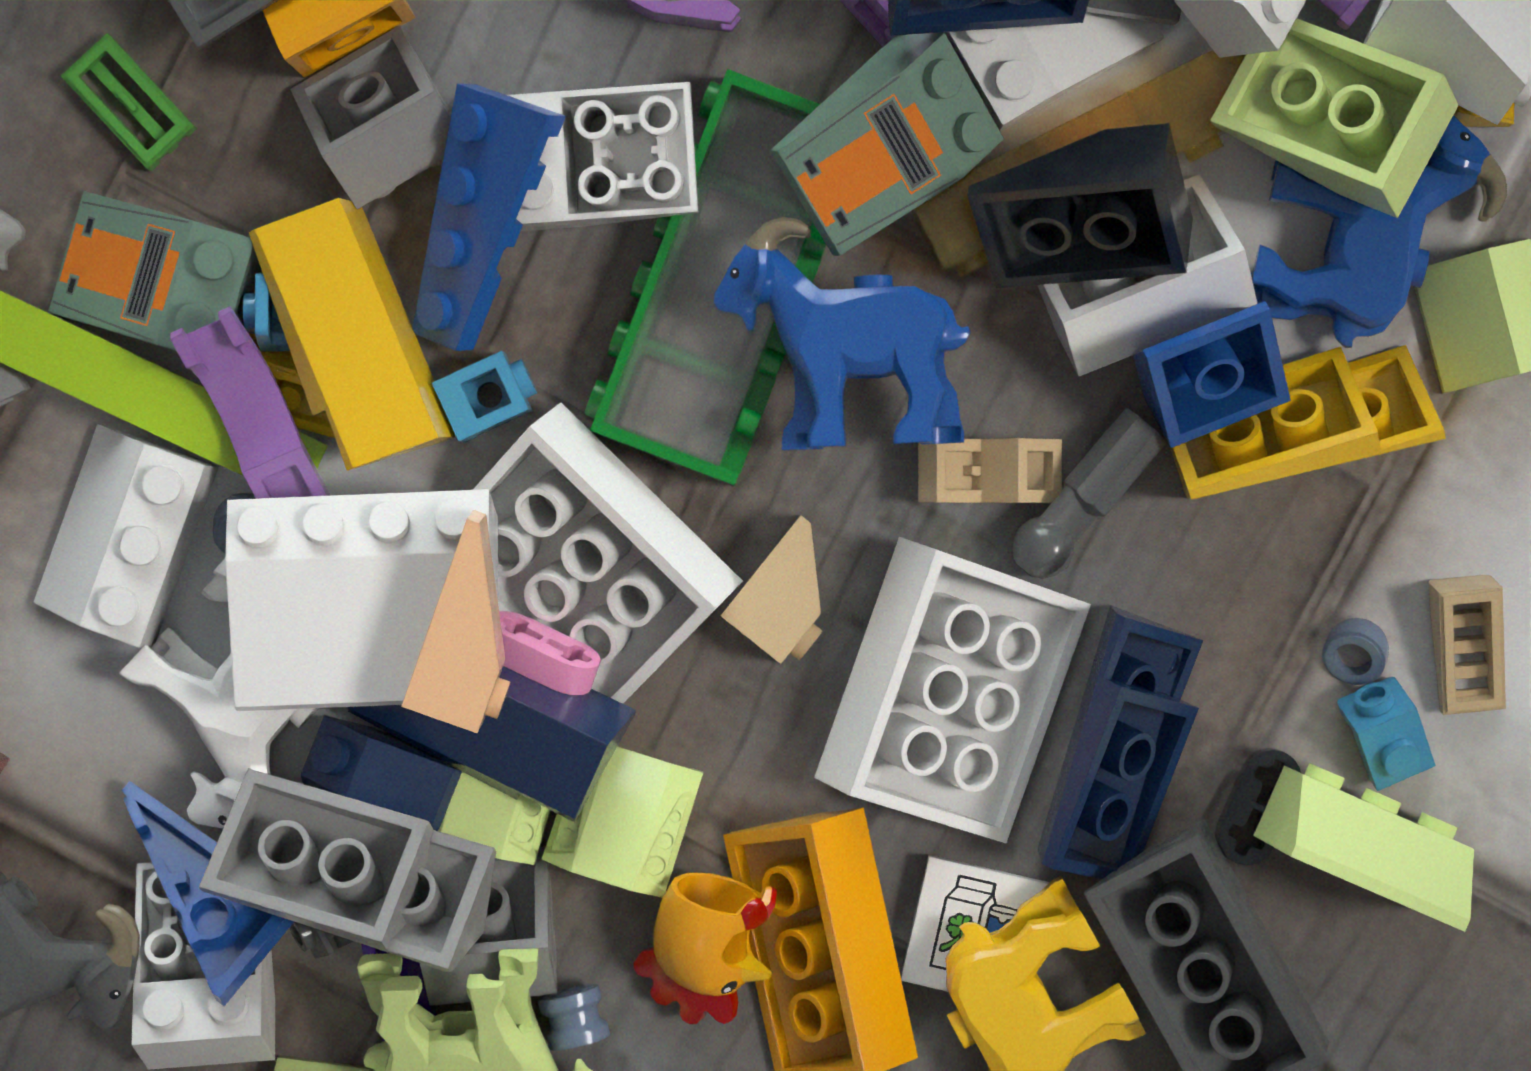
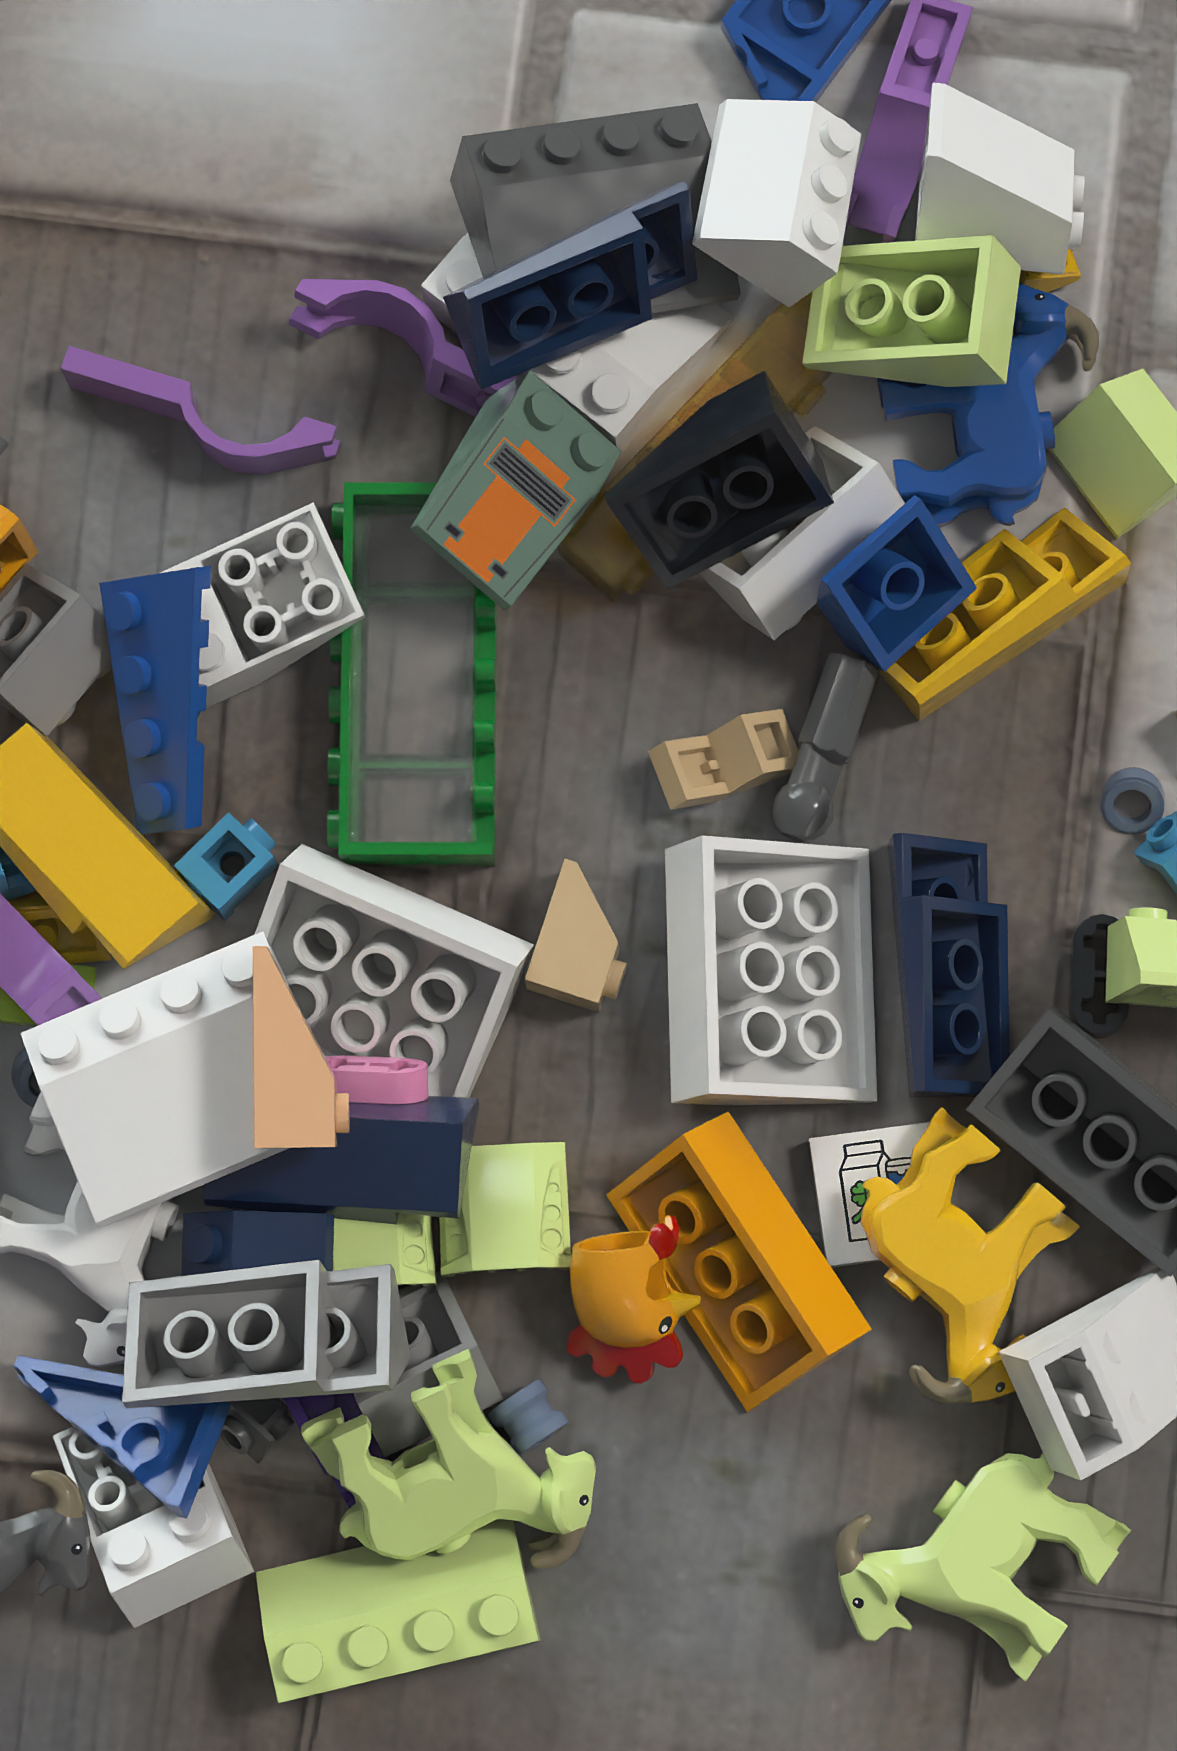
camera: 20 degrees left, 10 degrees down
(845, 335) = (544, 676): blue animal -> none

